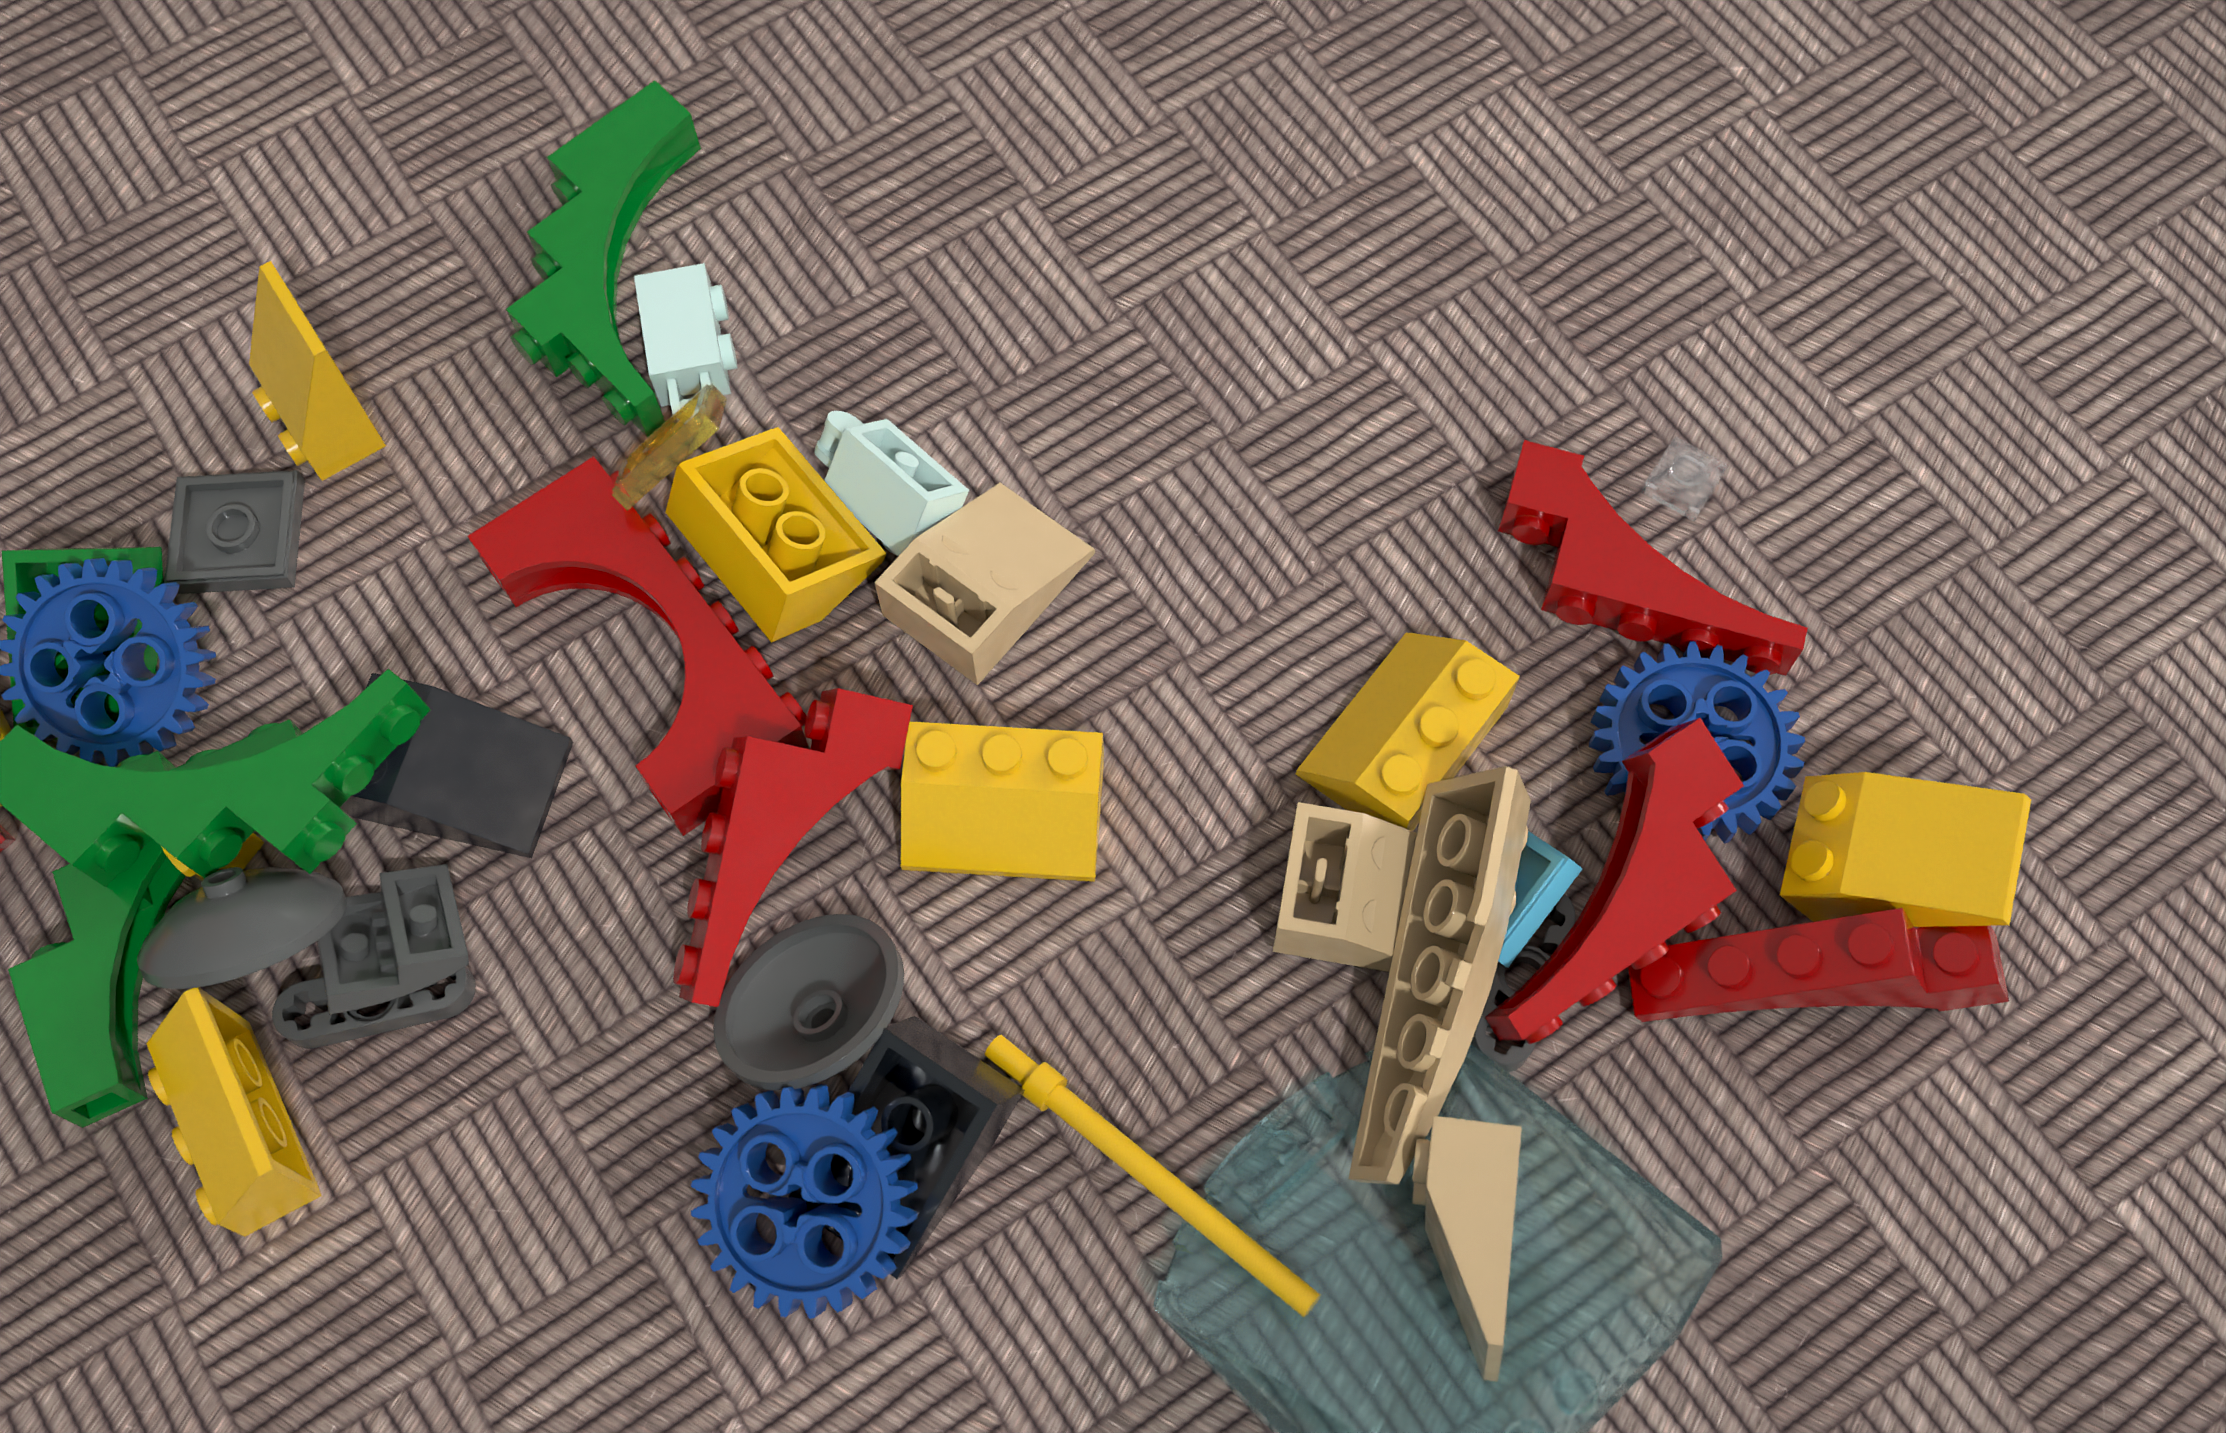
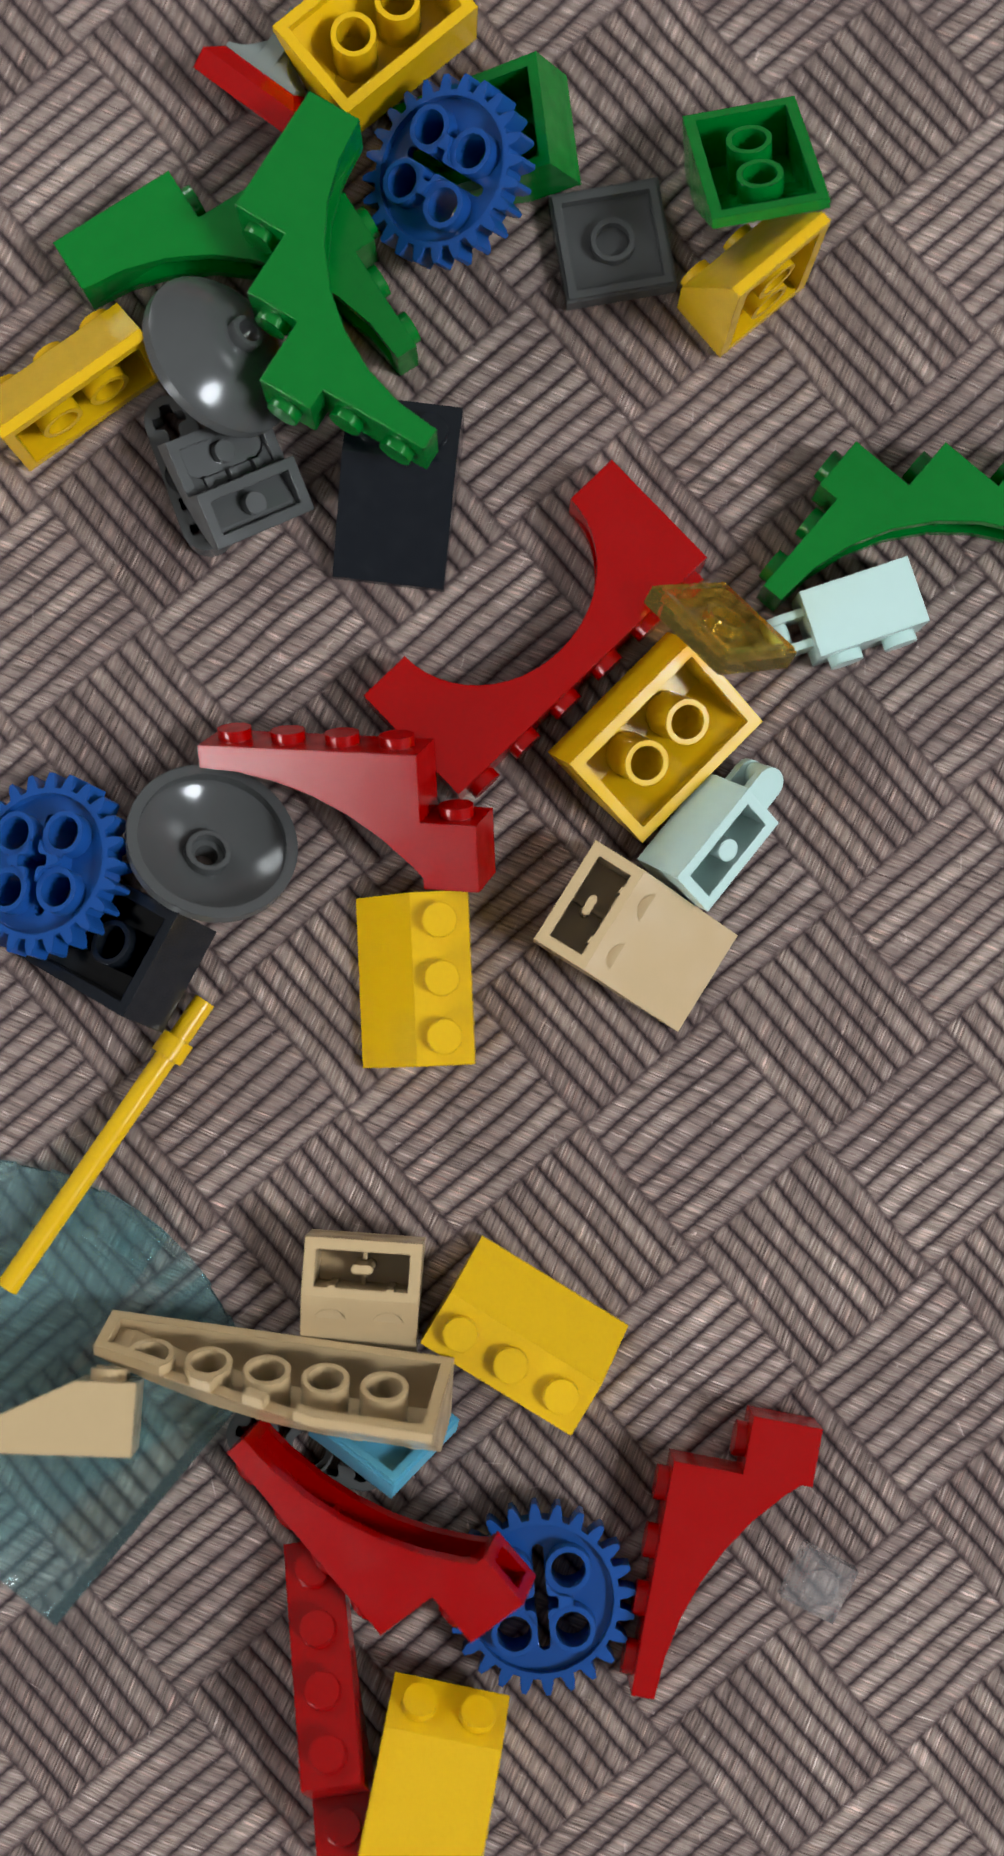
camera: 85 degrees right, 20 degrees up
(190, 367) = (752, 163): none -> green slope

